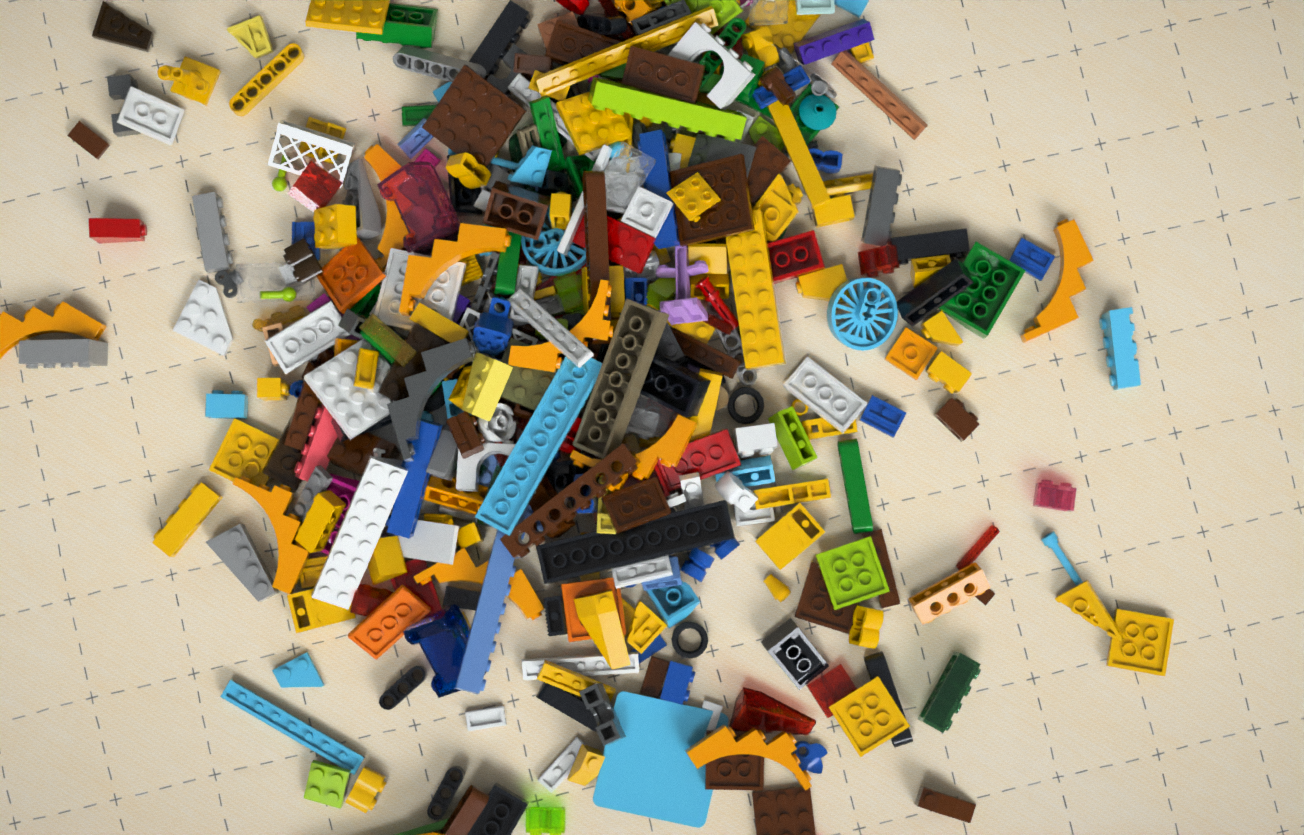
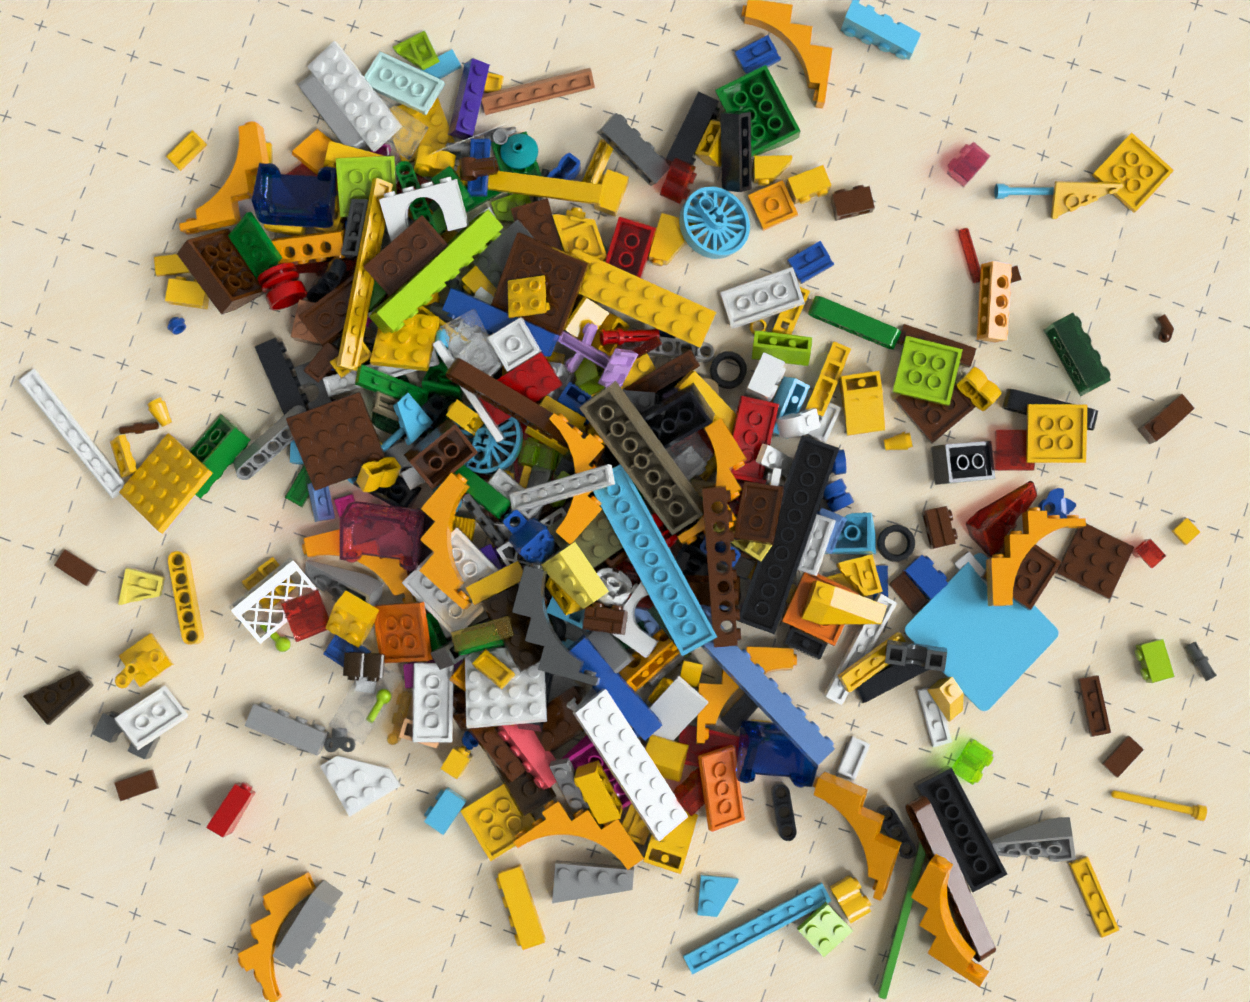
camera: 50 degrees left, 0 degrees up
(421, 787) = (879, 849): none -> light orange arch
(726, 668) = (939, 527): none -> reddish brown brick
(1023, 756) = (1166, 329): none -> reddish brown arm

